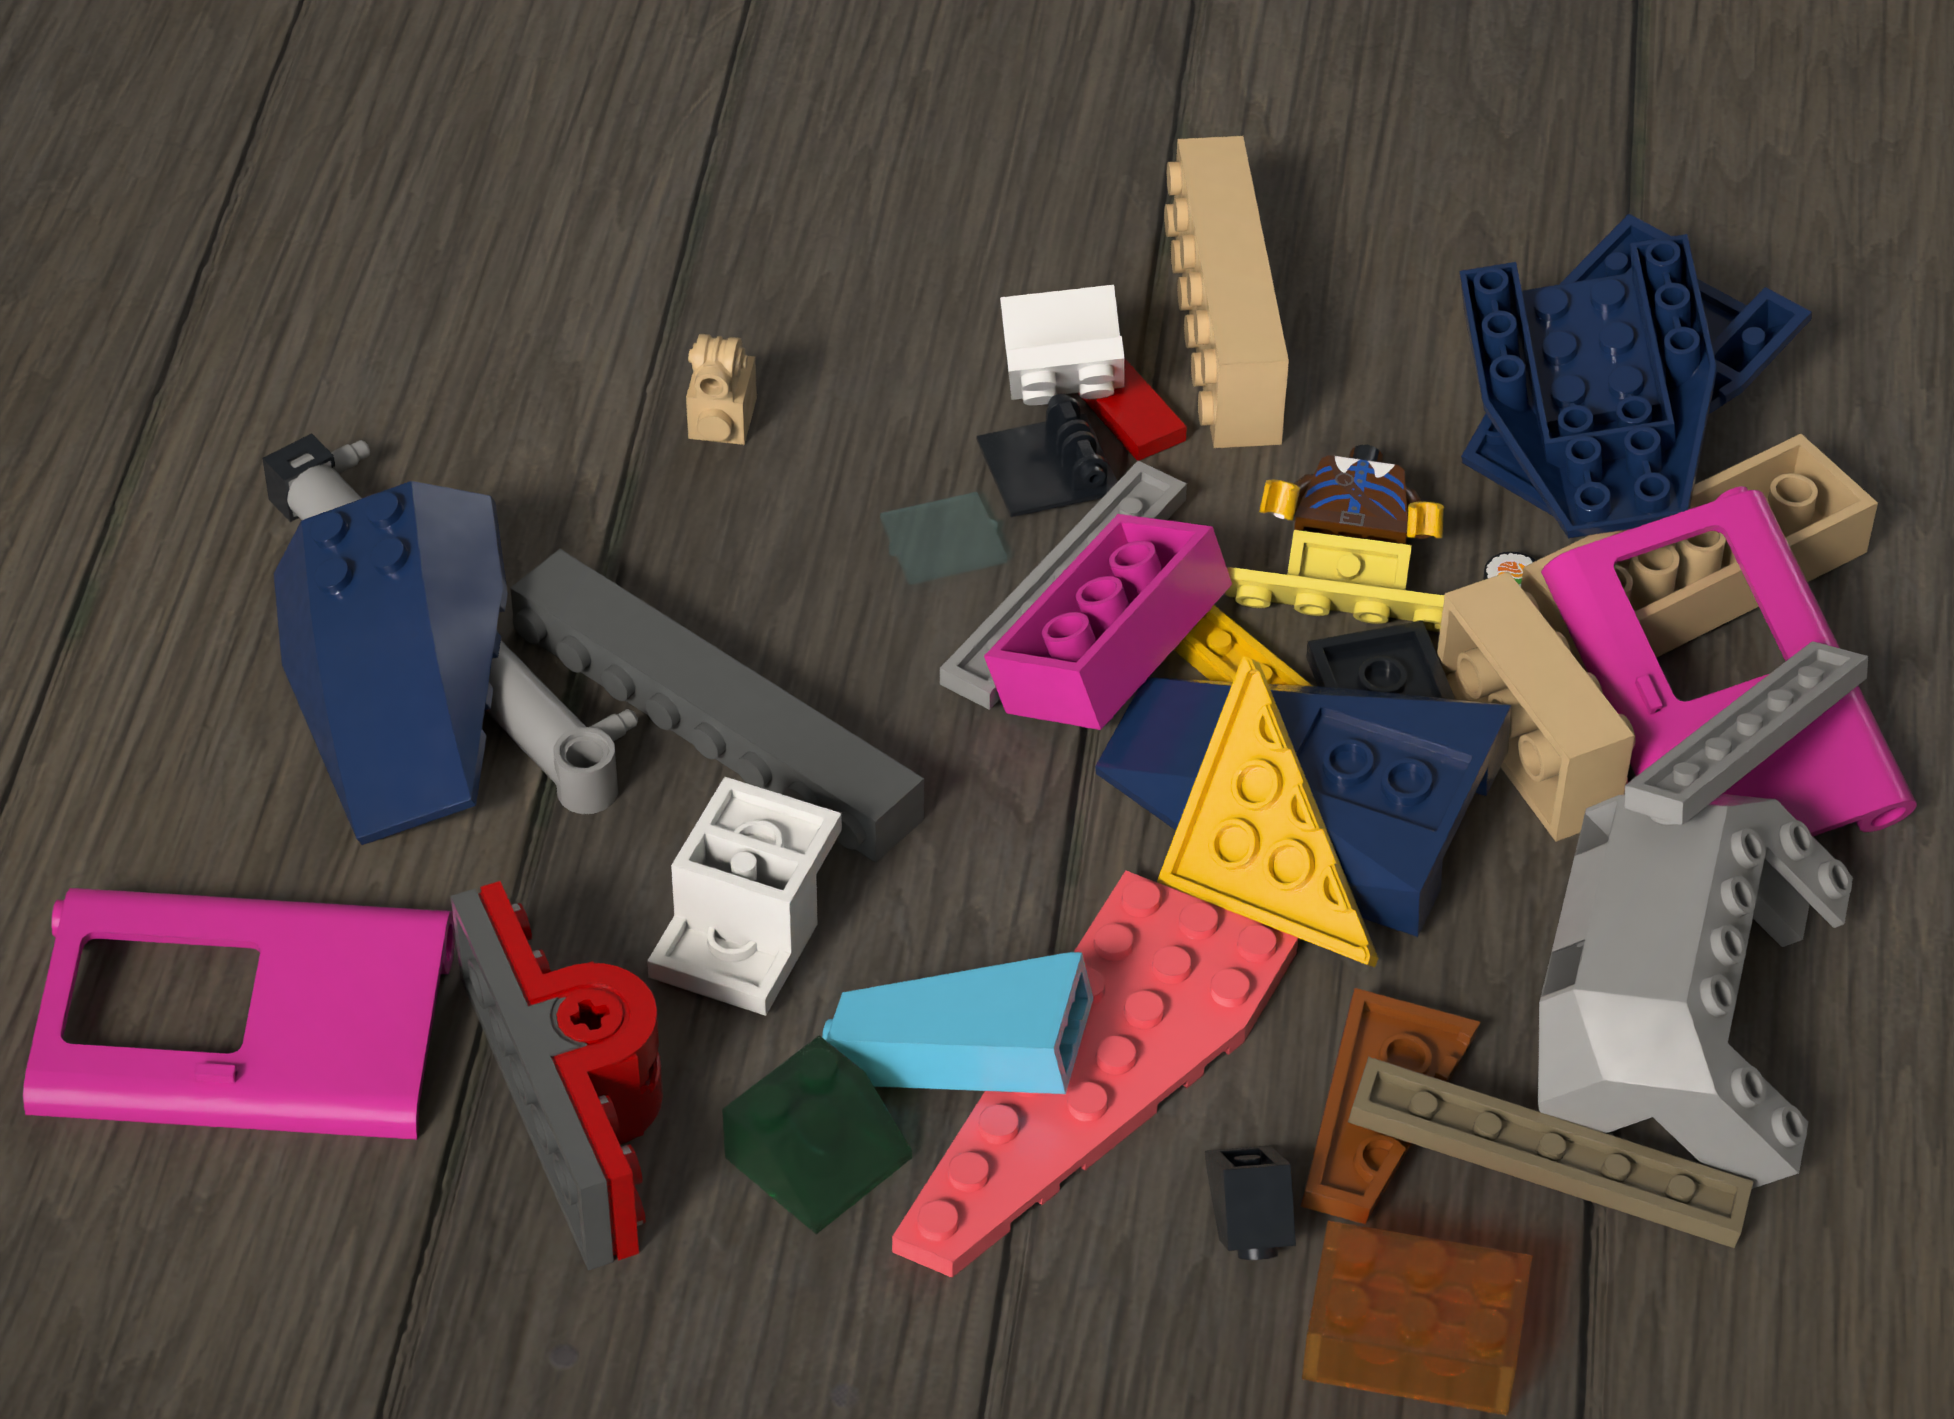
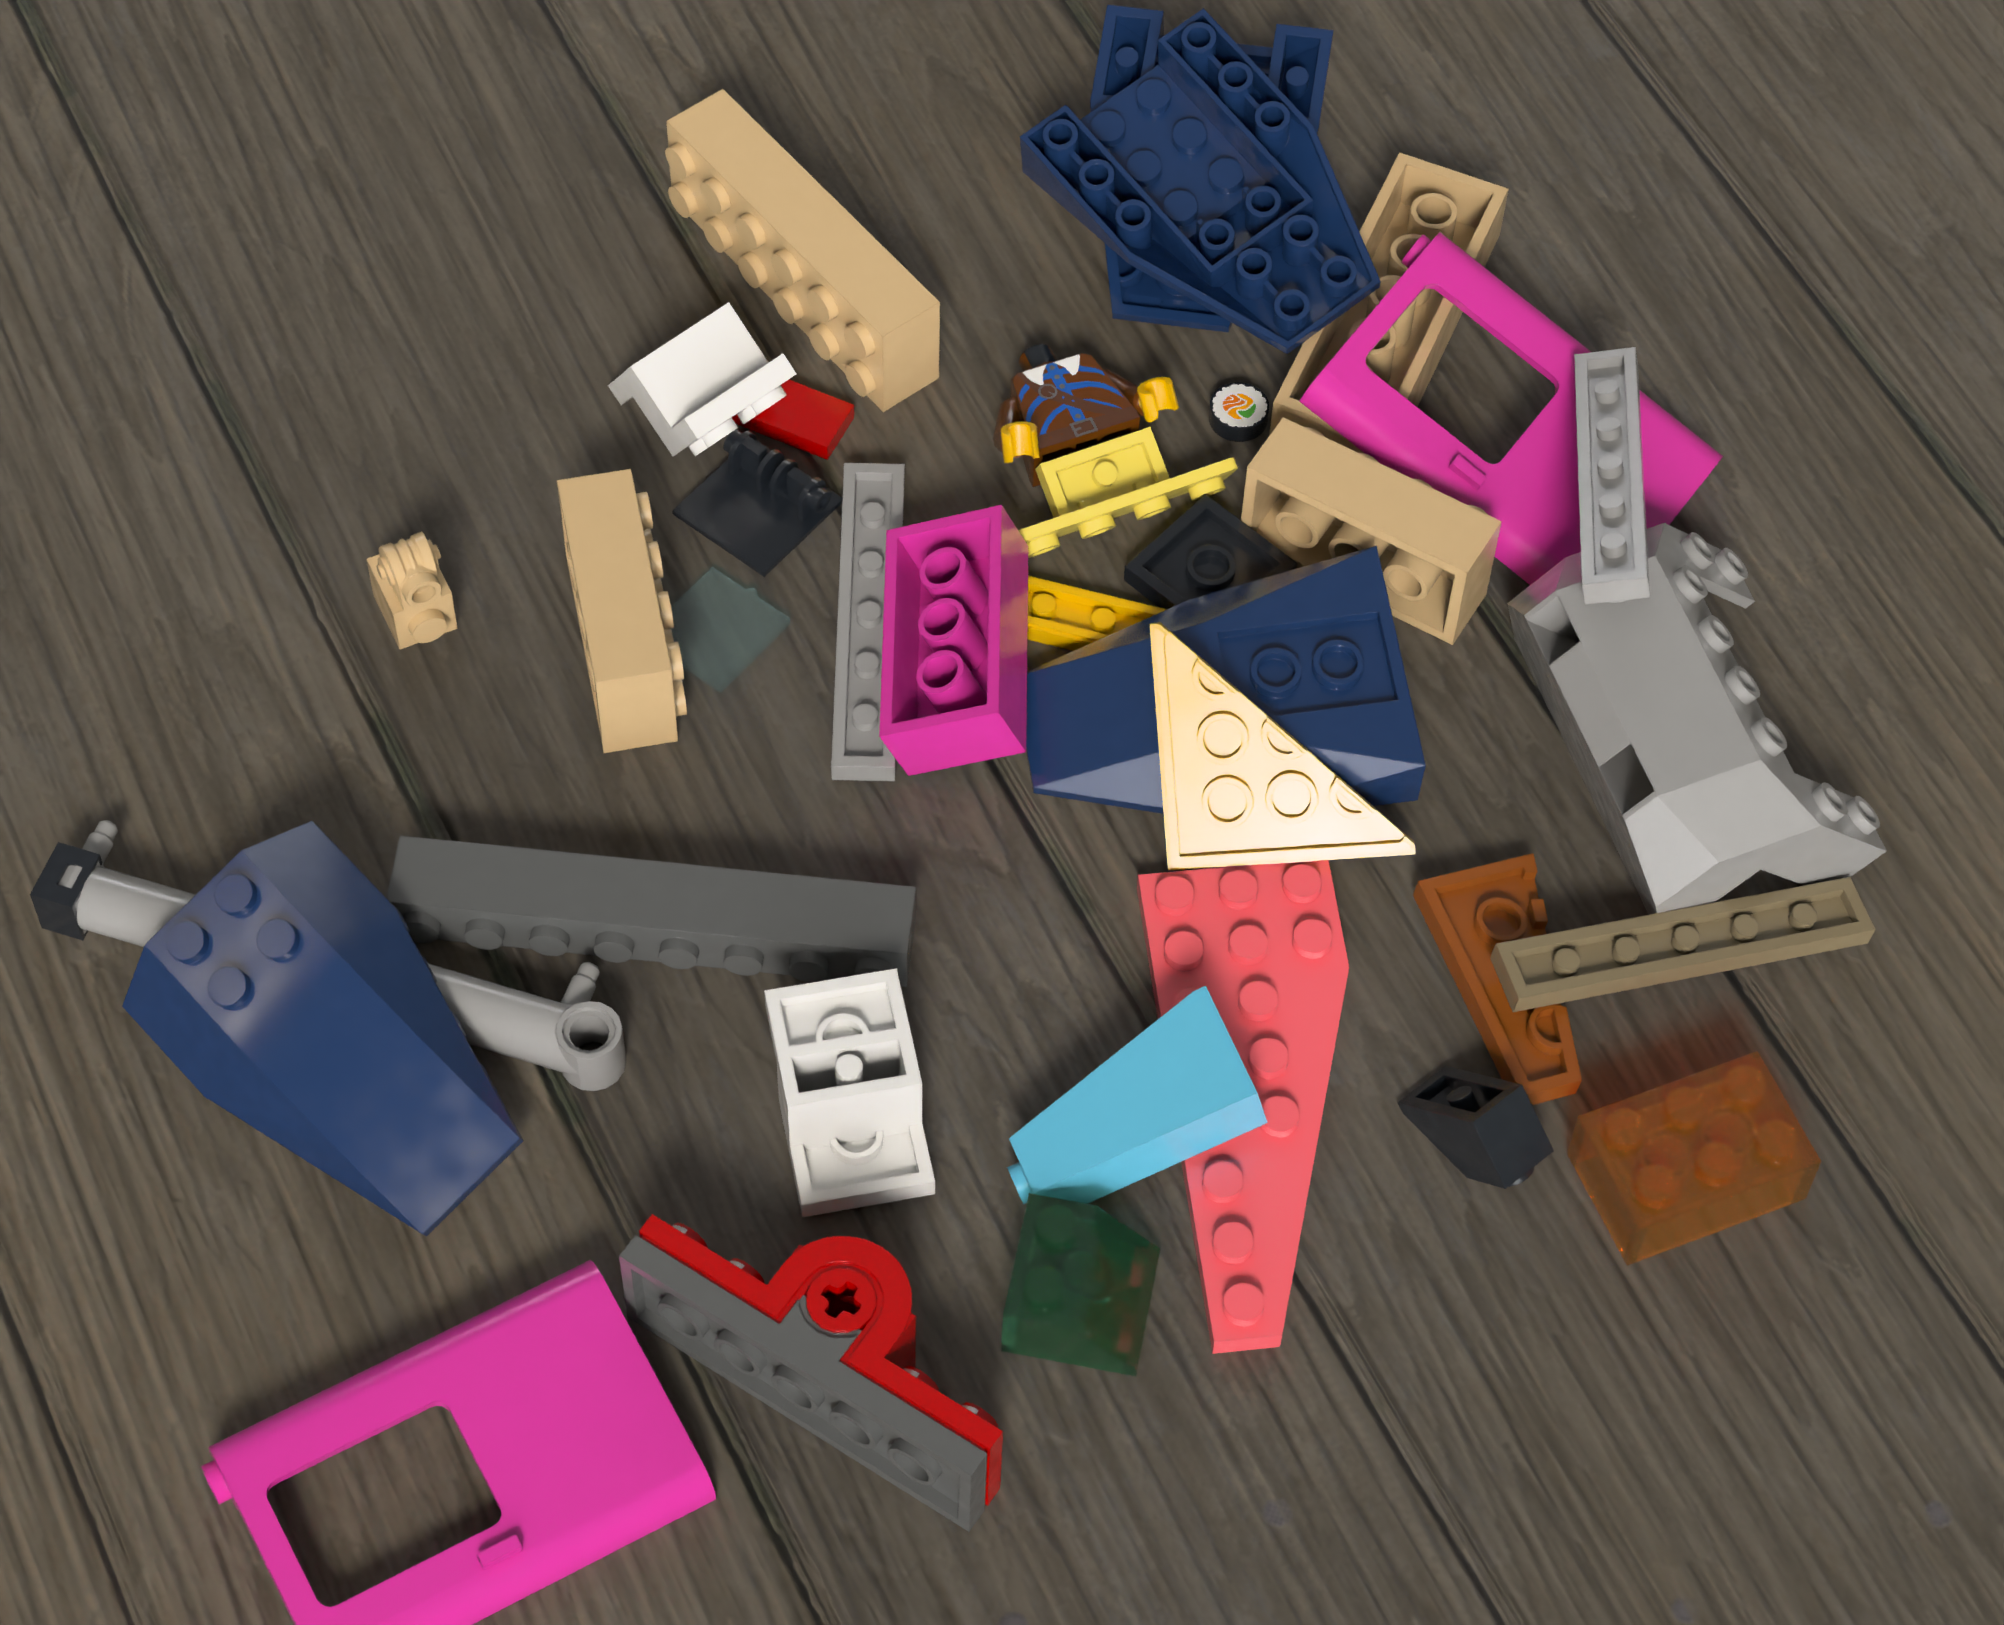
camera: 35 degrees left, 10 degrees up
(859, 475) = (622, 610): none -> tan brick

